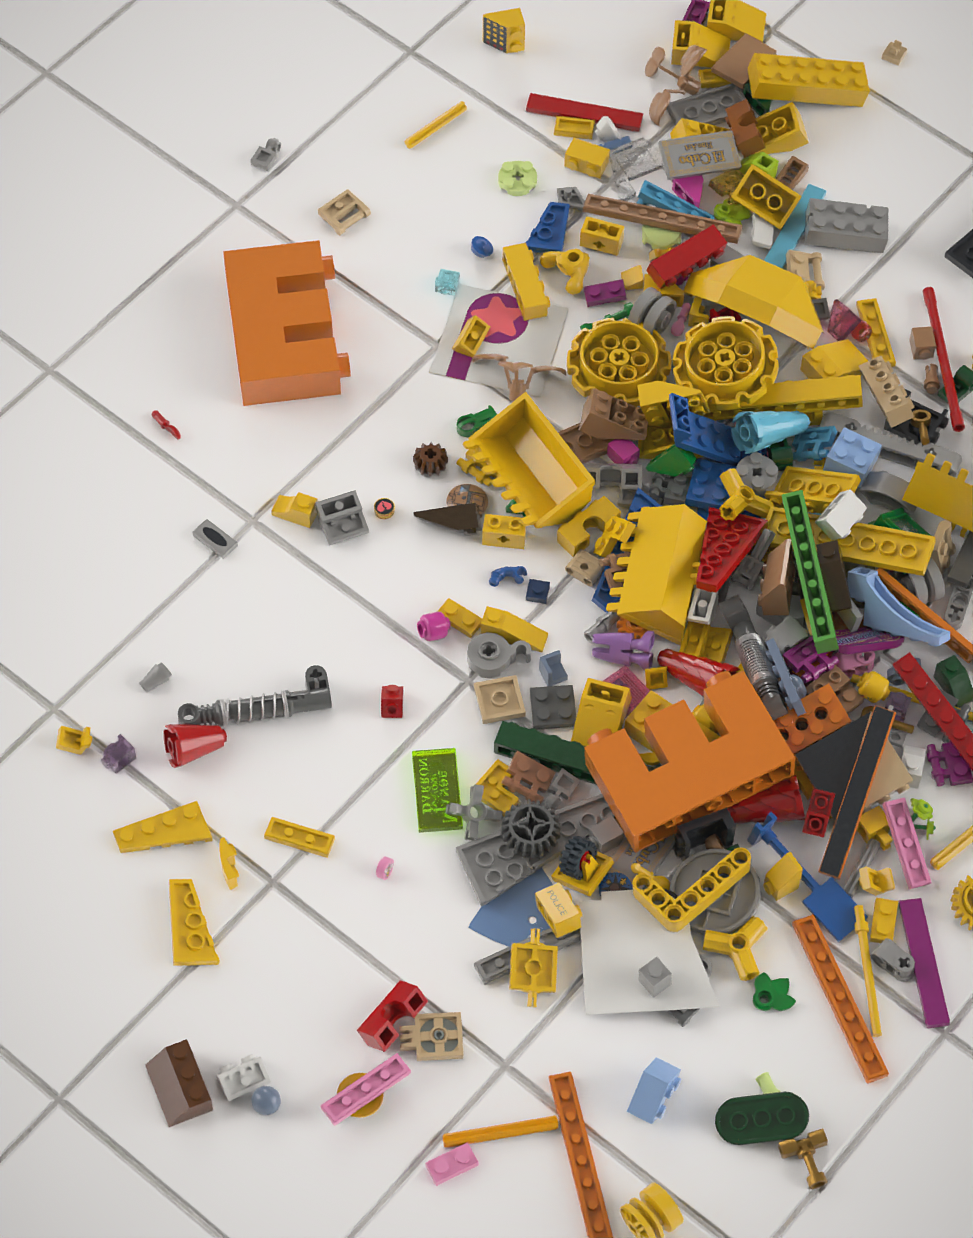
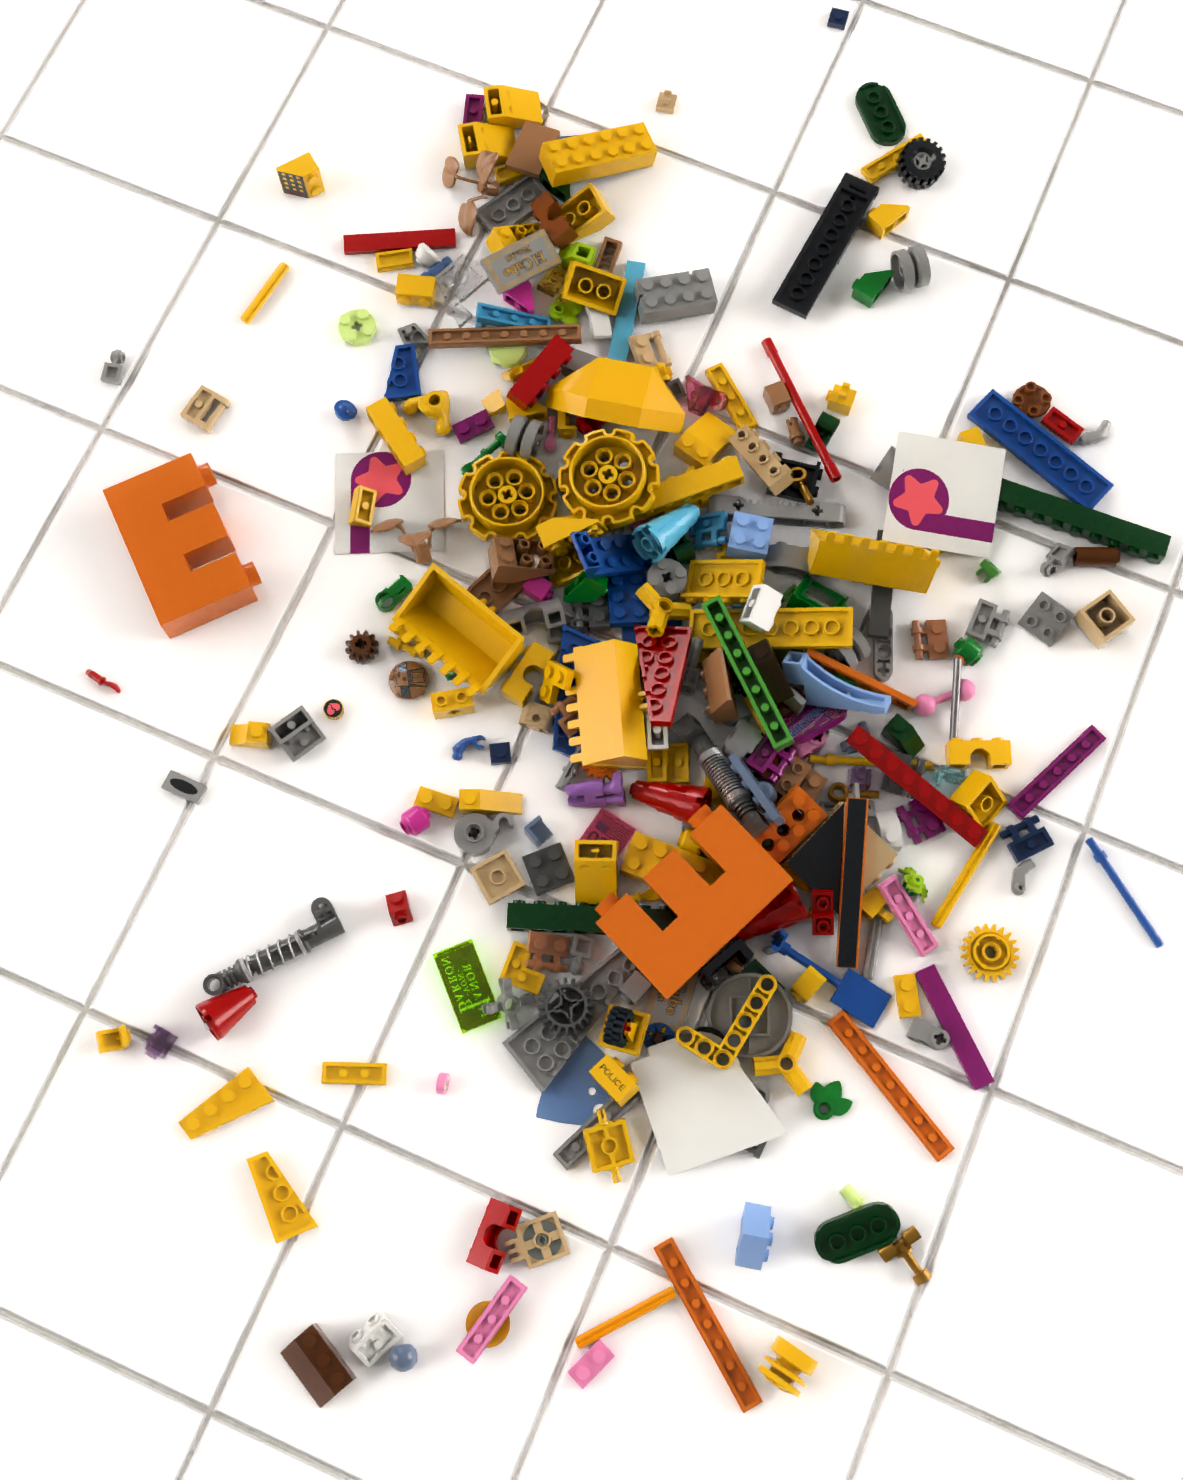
camera: 15 degrees left, 15 degrees up
(156, 676) = (171, 949): light grey cone -> none
(227, 857) = (292, 1117): yellow slope -> none
(447, 282) = (323, 455): clear light blue bracket -> none
(458, 518) = (404, 703): dark brown slope -> none
(601, 236) = (454, 369): yellow brick -> none
(655, 977) = (723, 1125): light grey brick -> none
(656, 678) = (634, 812): yellow slope -> none
(661, 880) = (696, 1020): yellow piece -> none
(862, 929) = (890, 1012): yellow bar -> none
(873, 687) = (833, 767): yellow head -> none
(876, 881) = (890, 960): yellow bracket -> none
(944, 546) = (856, 600): tan plate -> none

